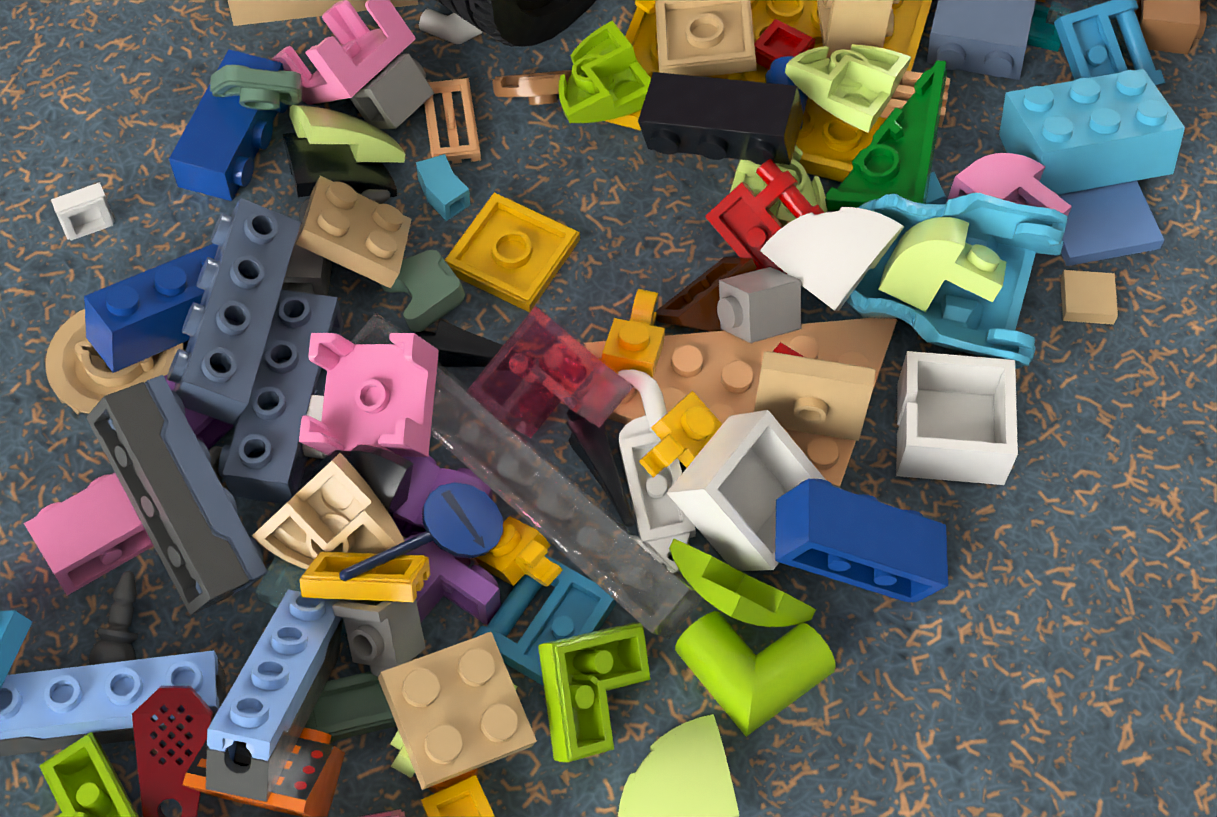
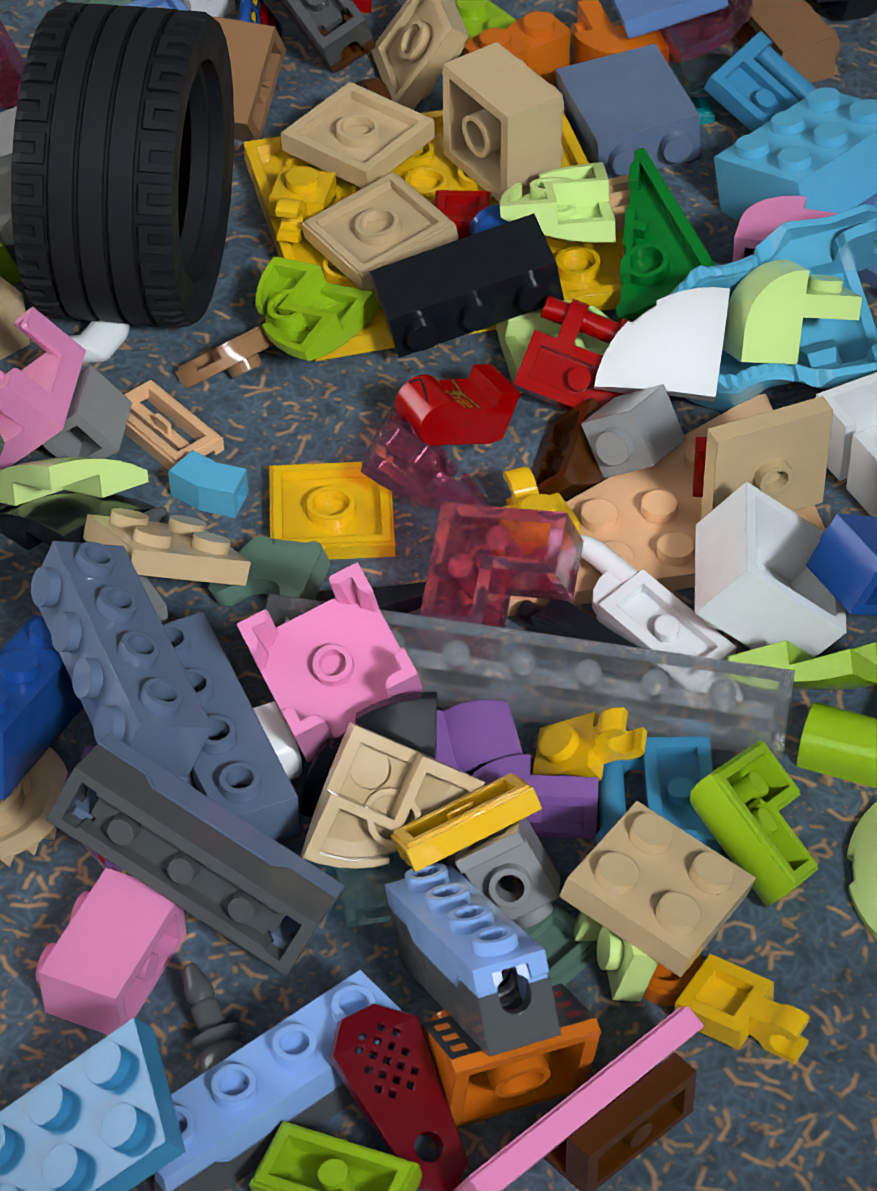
camera: 30 degrees left, 15 degrees down
(455, 519) = (505, 737): blue piece -> none
(590, 249) = (415, 469): none -> clear pink brick
(650, 215) = (458, 409): none -> red leg
(682, 434) = (664, 564): yellow plate -> none

